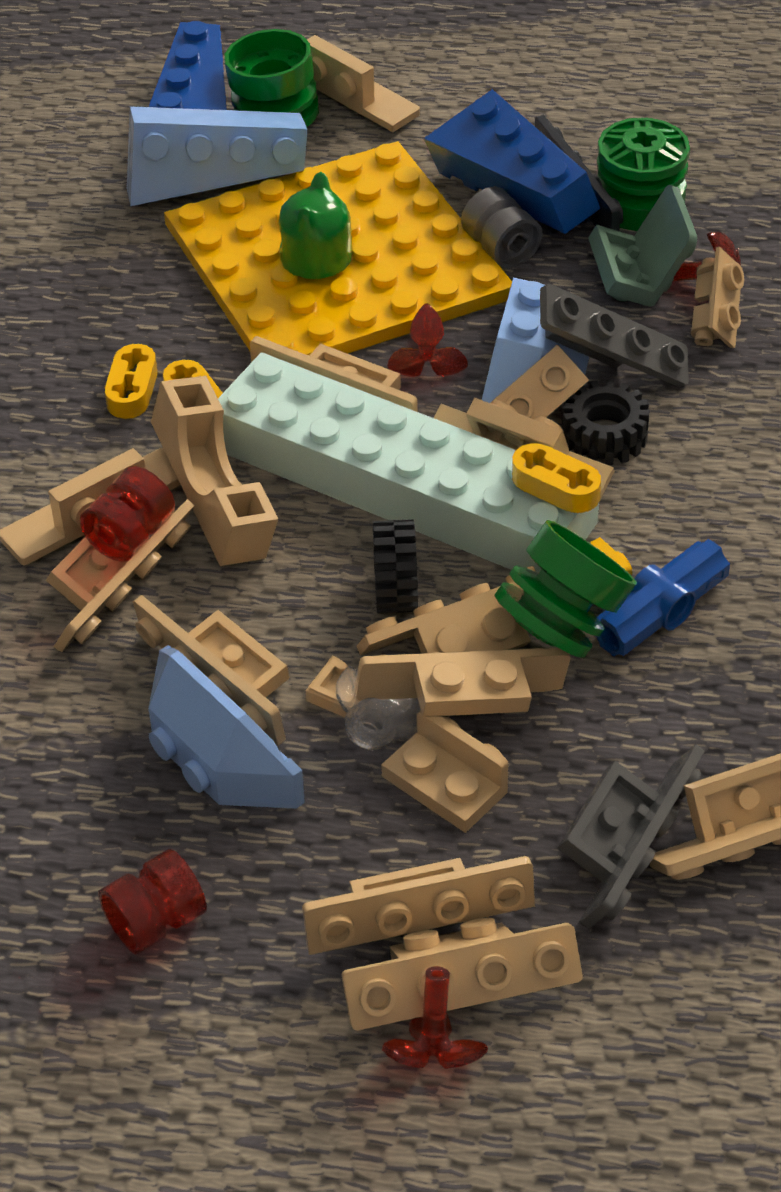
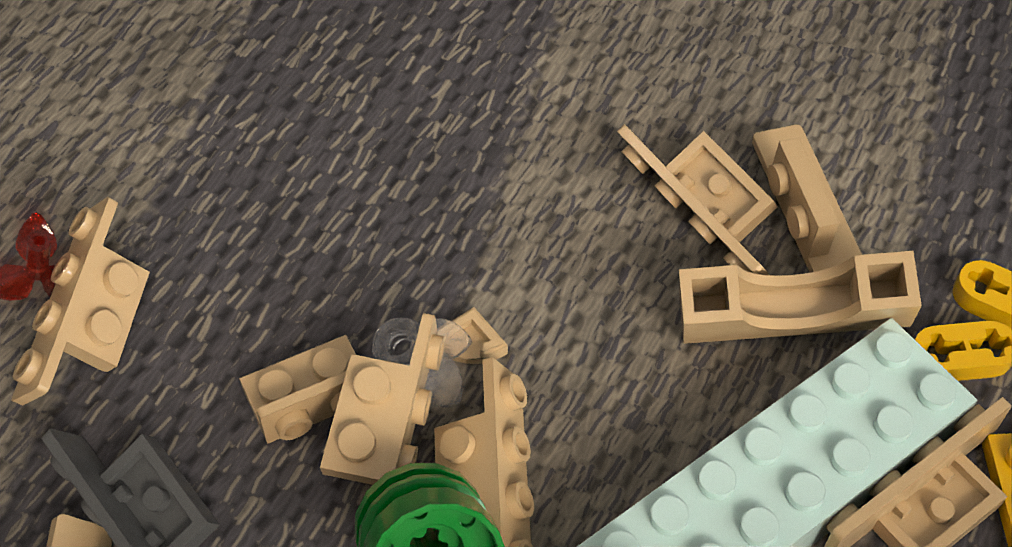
camera: 110 degrees right, 10 degrees up
(127, 513) = (745, 196): clear red wheel -> none
(160, 896) = (286, 110): clear red wheel -> none
(217, 740) = (449, 205): light blue wedge -> none
(226, 657) = (533, 241): tan bracket -> none
(395, 566) = (580, 422): black tyre -> none
(417, 901) = (171, 299): tan bracket -> none

